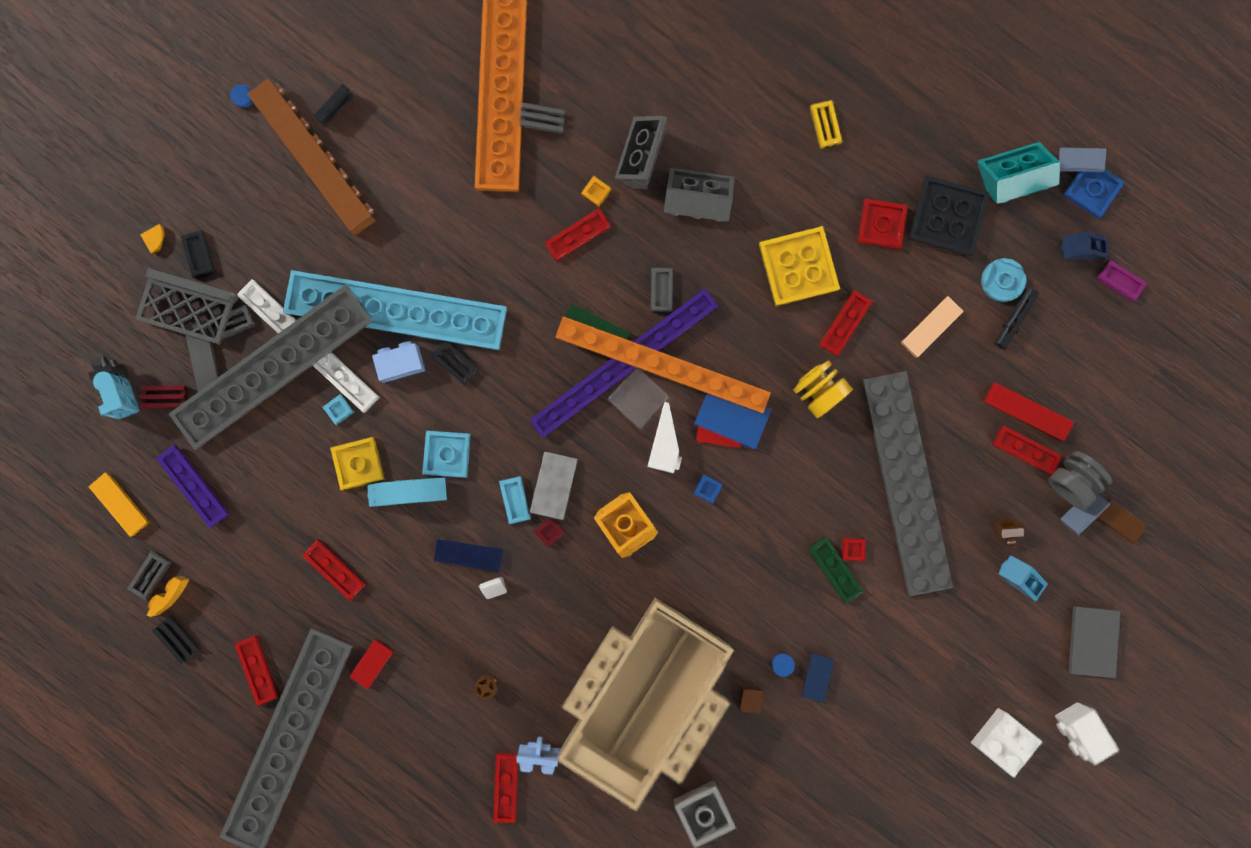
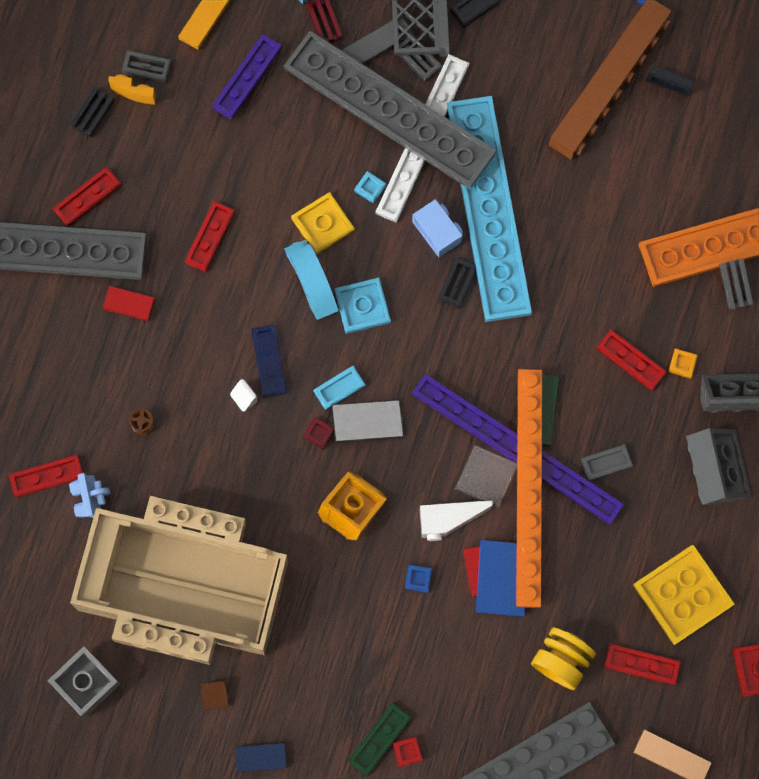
camera: 65 degrees right, 10 degrees down
(783, 664) = (262, 716): blue tile -> none

